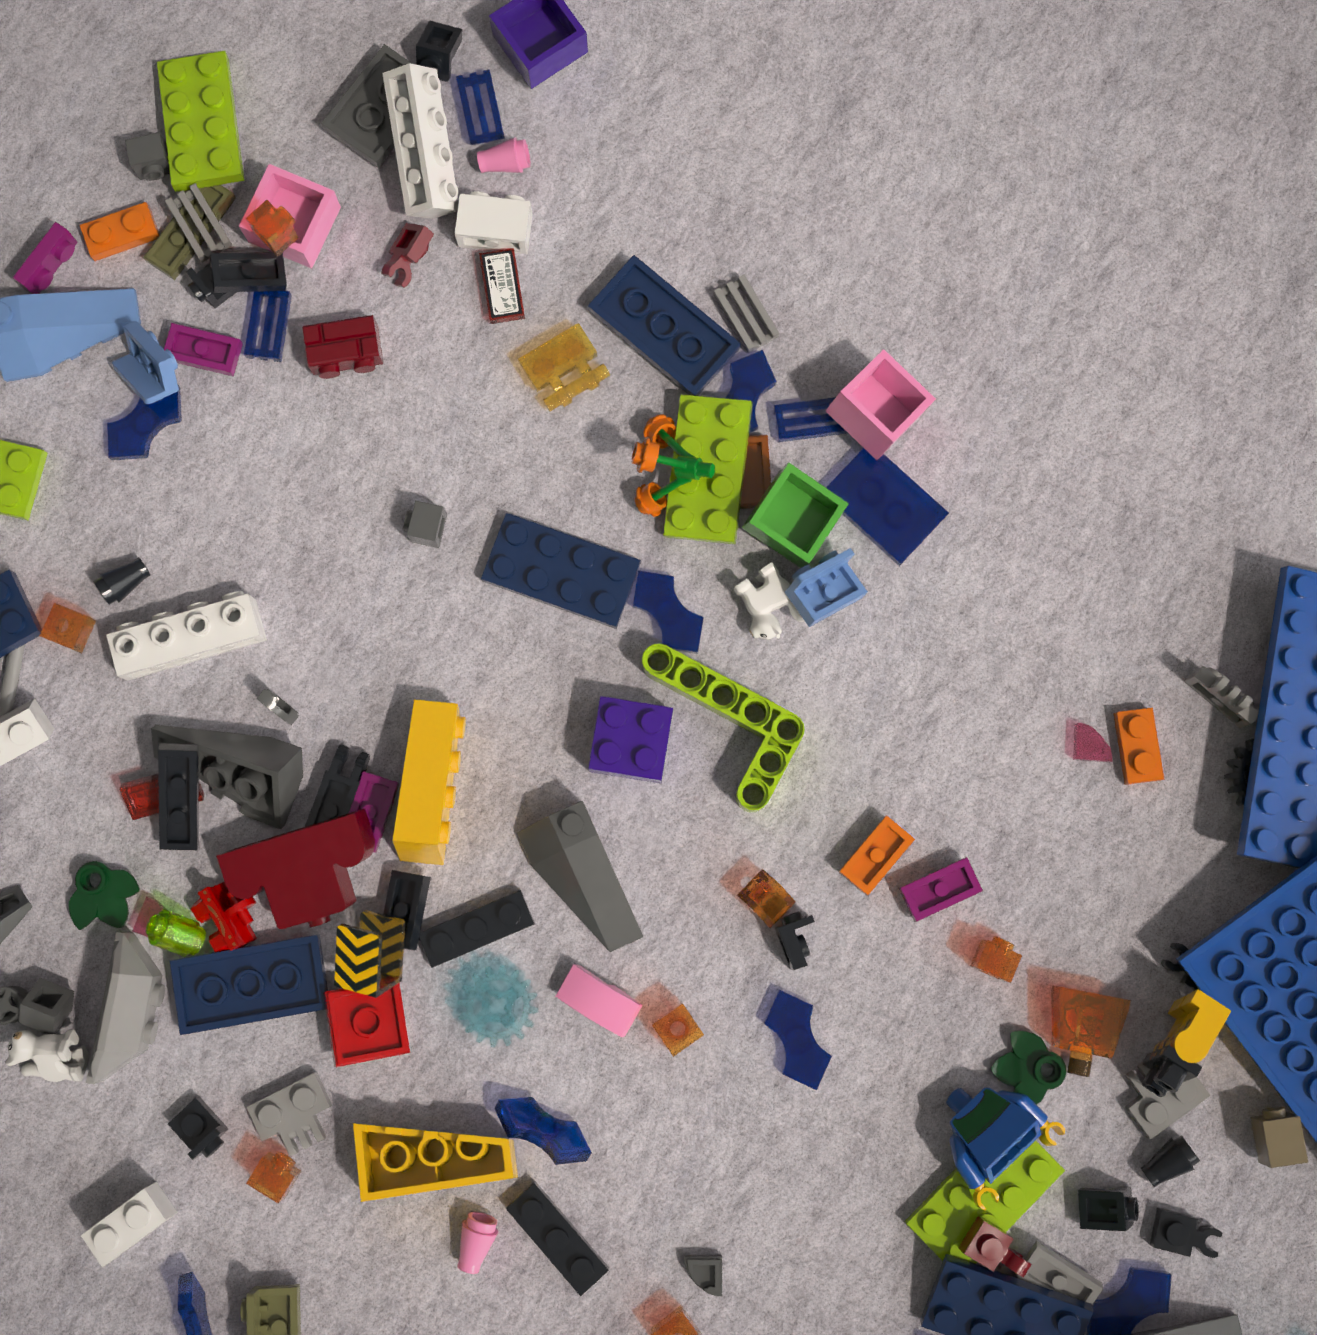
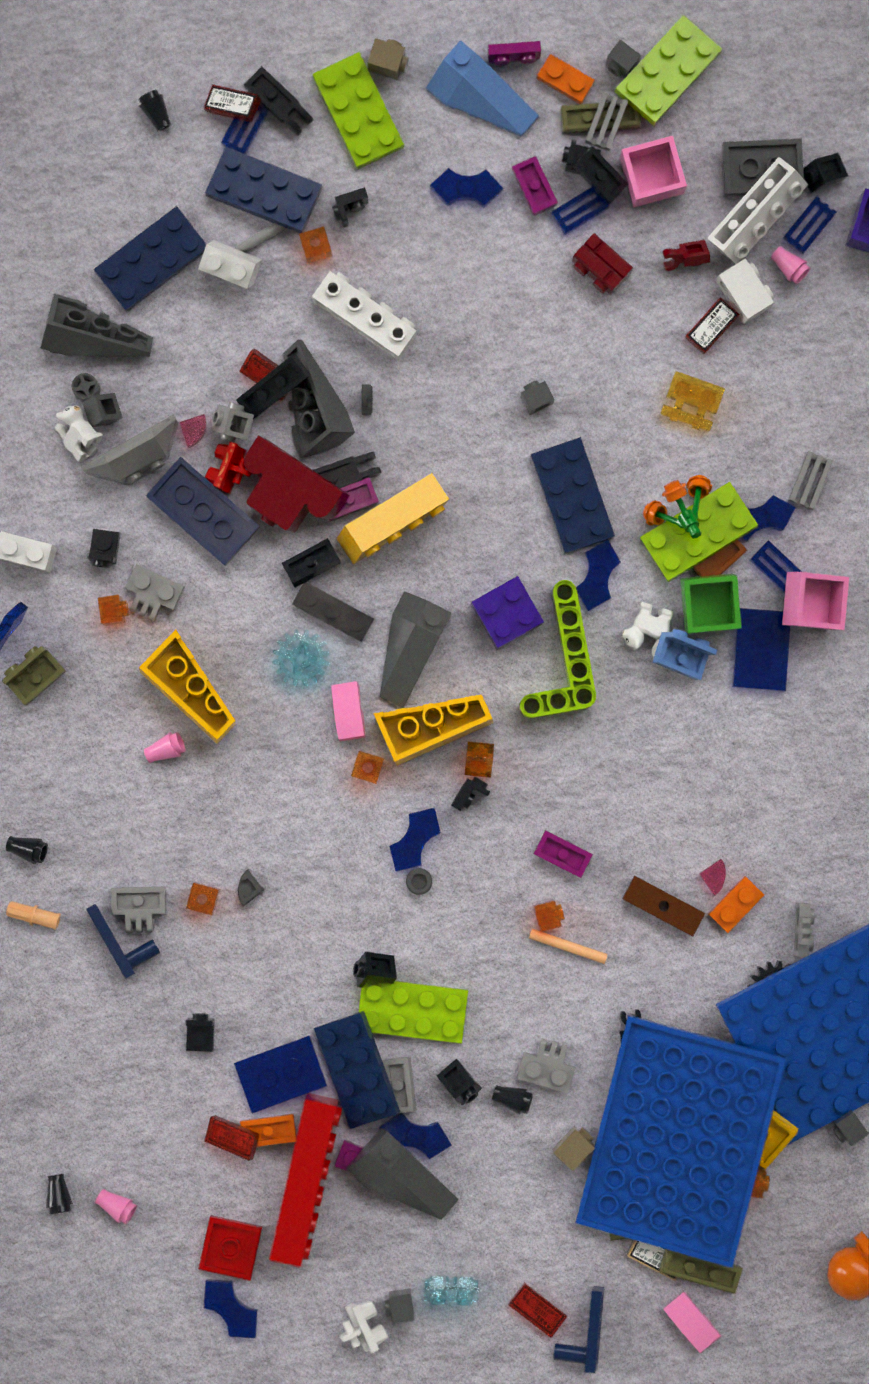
camera: 50 degrees right, 5 degrees up
(55, 551) = (350, 201): none -> black bracket
(104, 901) = (184, 393): dark green plate -> none
(121, 580) = (366, 252): black cone -> none
(148, 366) = (499, 163): medium blue bracket -> none
(175, 933) = (198, 447): clear neon green brick -> none
(190, 868) = (232, 422): none -> light grey brick
(273, 227) = (636, 171): clear orange plate -> none
(365, 1026) = (234, 592): red tile -> none
(370, 956) = (273, 564): piece -> none
(528, 1121) = (252, 725): clear blue tile -> none
(557, 1238) = (202, 792): black plate -> none
(664, 326) = (763, 439): dark blue plate -> none
(686, 928) = (430, 726): none -> yellow wedge
(847, 1072) = (419, 881): none -> dark grey tile
(876, 855) = (553, 803): orange plate -> none
(908, 1202) = (375, 968): none -> black bracket
(990, 1246) = (387, 1031): dark red plate -> none
(993, 1133) = (451, 986): blue torso -> none
(1024, 1064) = (500, 977): dark green plate -> none
(1046, 964) = (568, 946): none -> light nougat bar
(1086, 1025) = (551, 993): clear orange torso -> none
(1100, 817) = (677, 913): none -> reddish brown tile
(1179, 1234) = (477, 1133): black plate -> none
(1188, 1042) = (573, 1054): hips -> none

